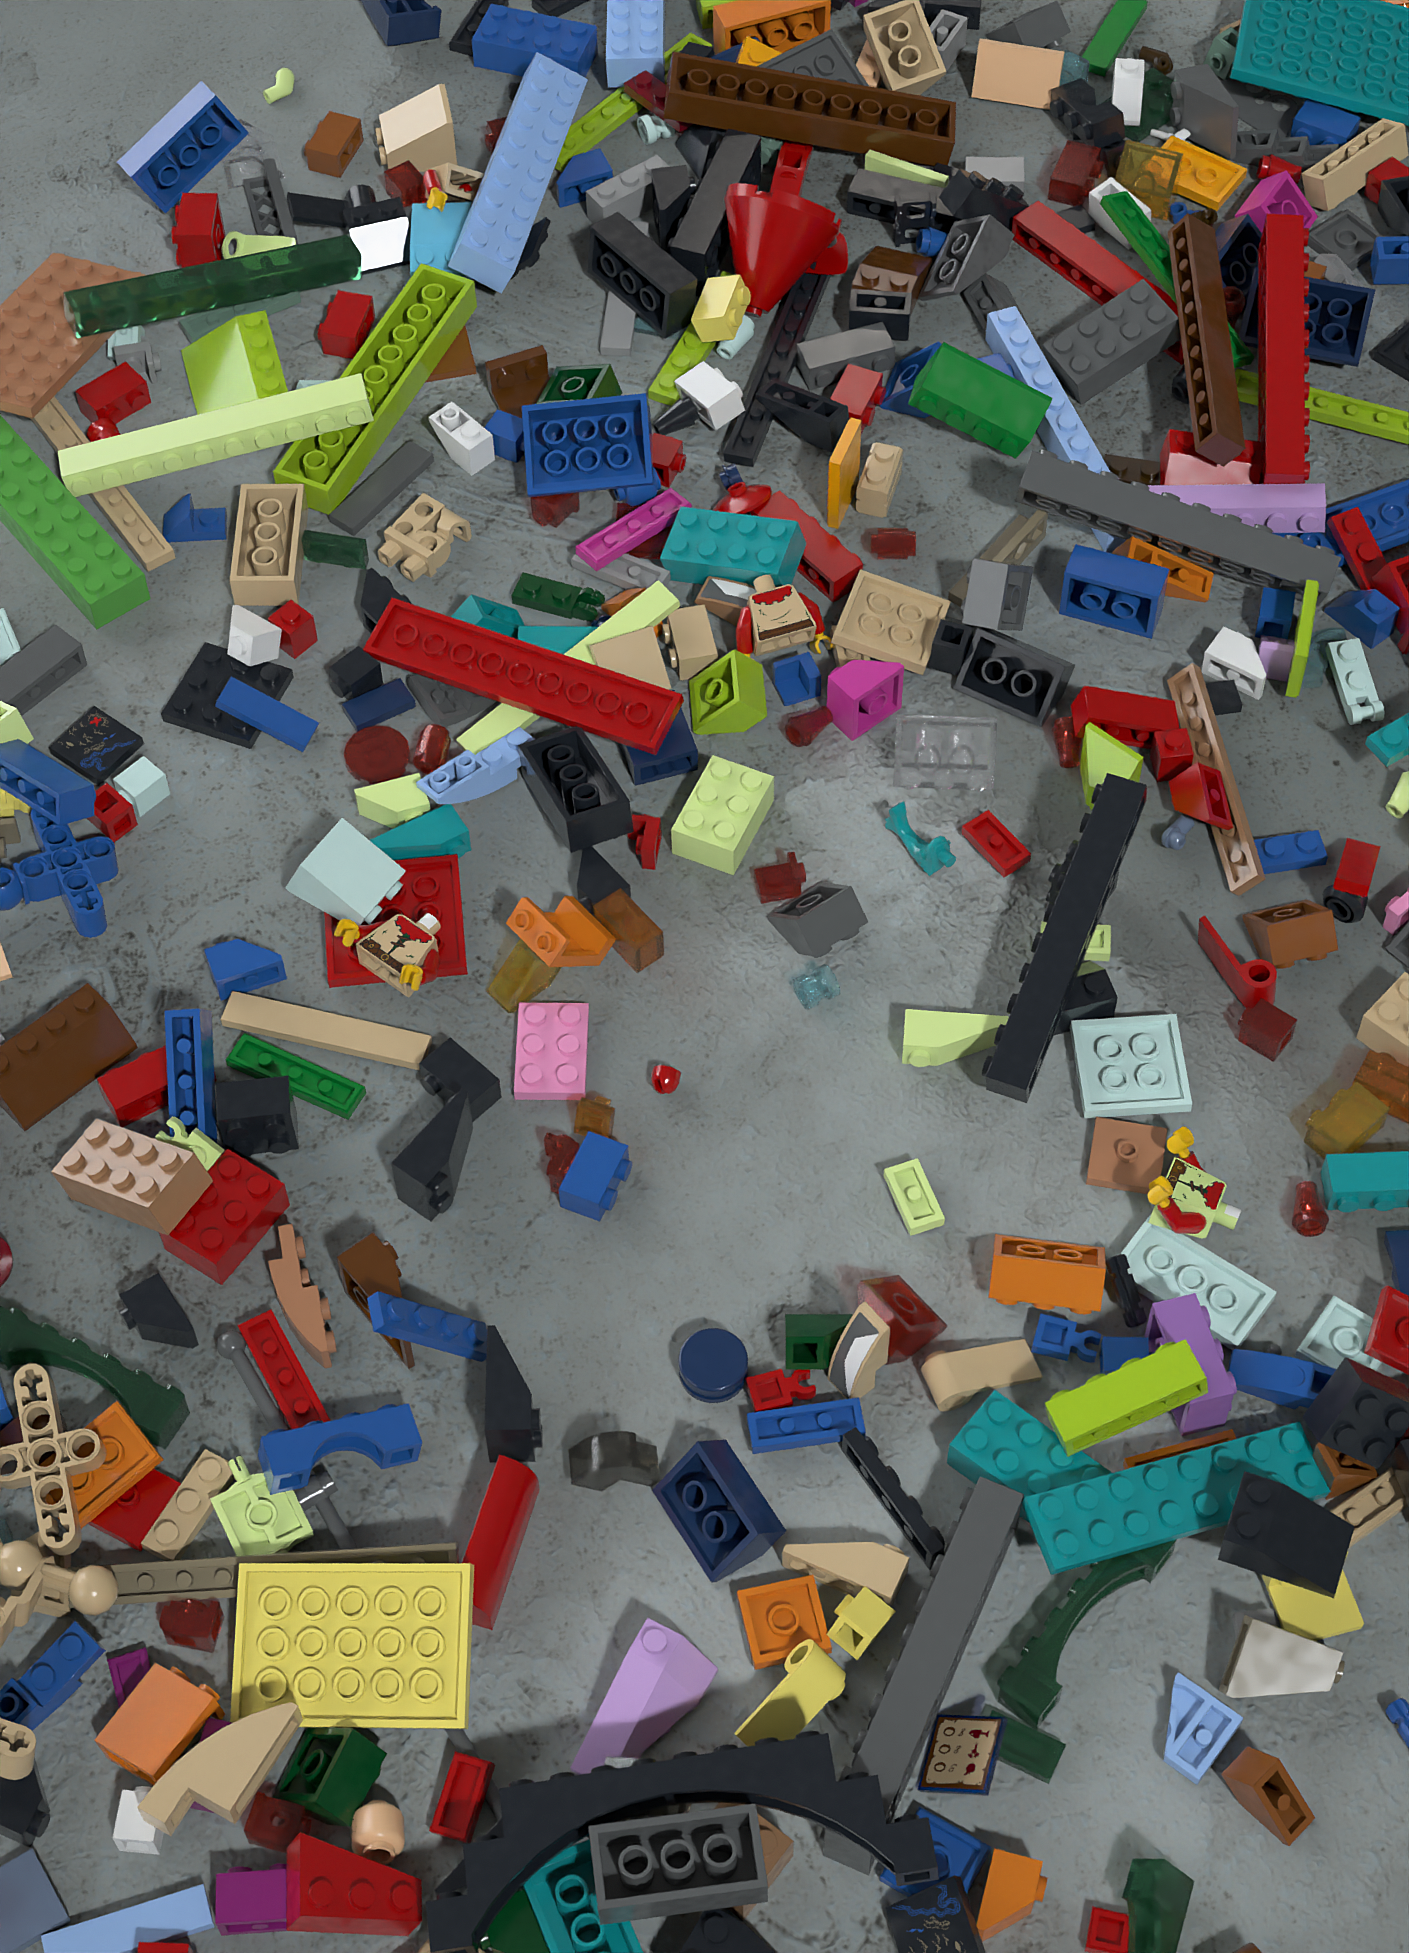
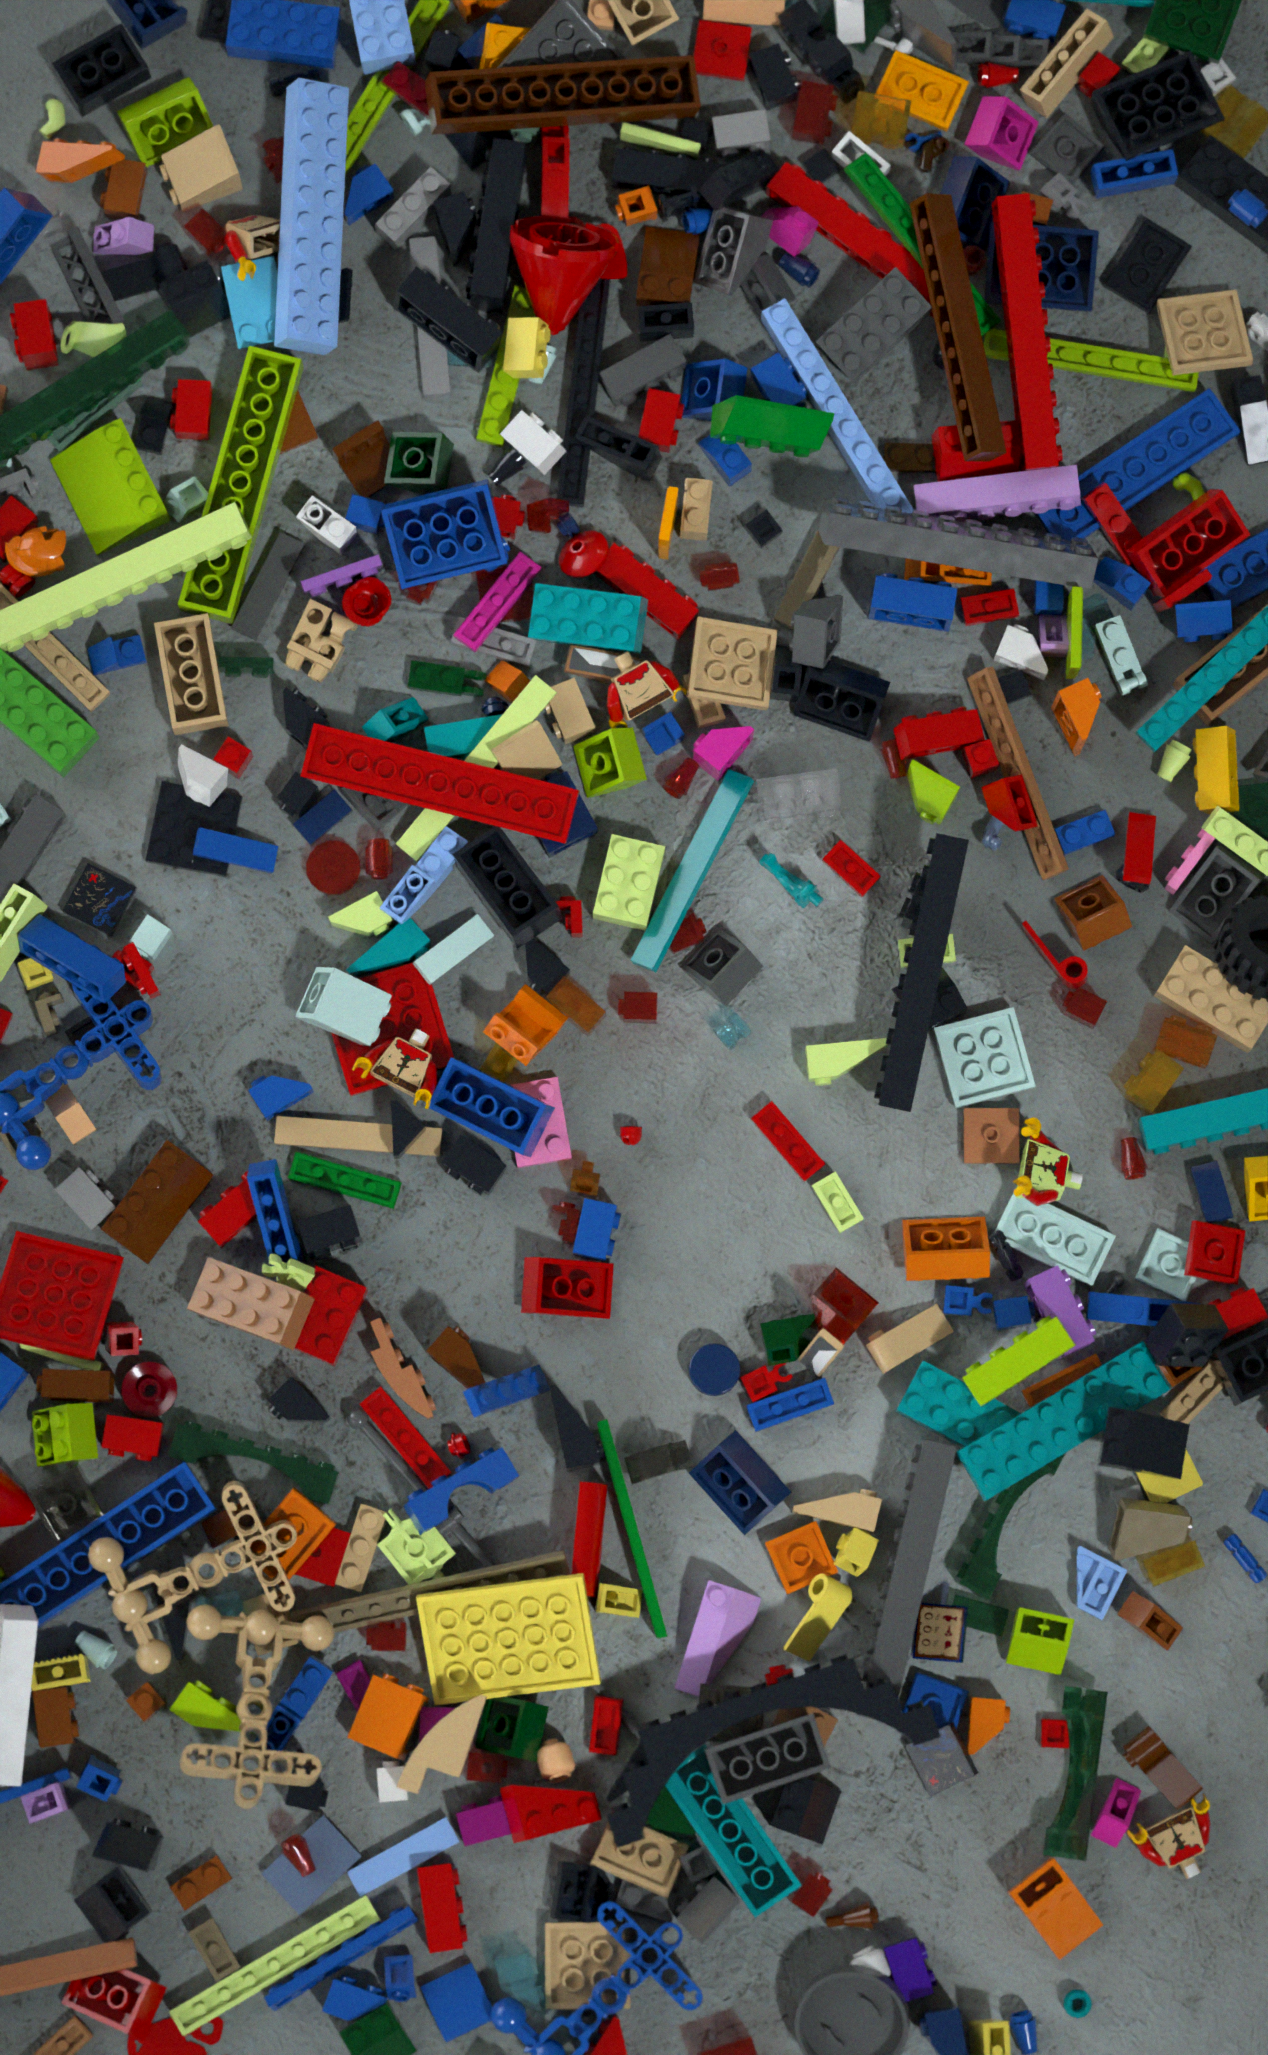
camera: 15 degrees left, 25 degrees up
(116, 813) = (134, 961): none -> red plate
(134, 408) = (37, 553): none -> orange helmet
(291, 107) = (73, 161): none -> orange slope
(299, 338) = (154, 425): none -> black slope
(321, 177) = (124, 237): none -> lavender slope
(340, 48) = (101, 70): none -> black brick
(354, 1399) = (459, 1445): none -> red plate
(382, 91) = (165, 120): none -> lime slope
(383, 1023) = (405, 1129): none -> black slope
(433, 1161) = (473, 1251): black slope -> none
(465, 475) = (341, 576): none -> medium lavender plate
(487, 504) = (366, 601): none -> red helmet
(495, 850) = (453, 949): none -> light aqua tile
(496, 1010) = (491, 1107): none -> blue brick
(516, 1631) = (619, 1600): none -> light yellow slope
(542, 1235) = (567, 1287): none -> red slope
(558, 1547) = (631, 1529): none -> green tile
(706, 944) = (638, 1007): none -> clear red brick
(708, 457) = (542, 511): none -> clear red bracket
(800, 816) = (692, 870): none -> teal tile
(863, 1118) = (787, 1141): none -> red plate
(869, 222) = (638, 198): none -> orange brick
(886, 1487) = (871, 1458): black plate -> none
(925, 444) = (727, 459): none -> blue slope
(953, 510) = (763, 528): none -> black plate
(987, 119) = (722, 50): none -> red plate
(1035, 257) = (791, 228): none -> dark pink slope
(1037, 140) = (773, 76): none -> black brick
(1037, 297) = (801, 270): none -> dark blue cone
(1104, 1790) = (1039, 1640): none -> lime slope
(1203, 616) = (989, 607): none -> red plate
(1295, 711) = (1075, 712): none -> orange slope
(1311, 1723) = (1173, 1563): none -> clear yellow plate

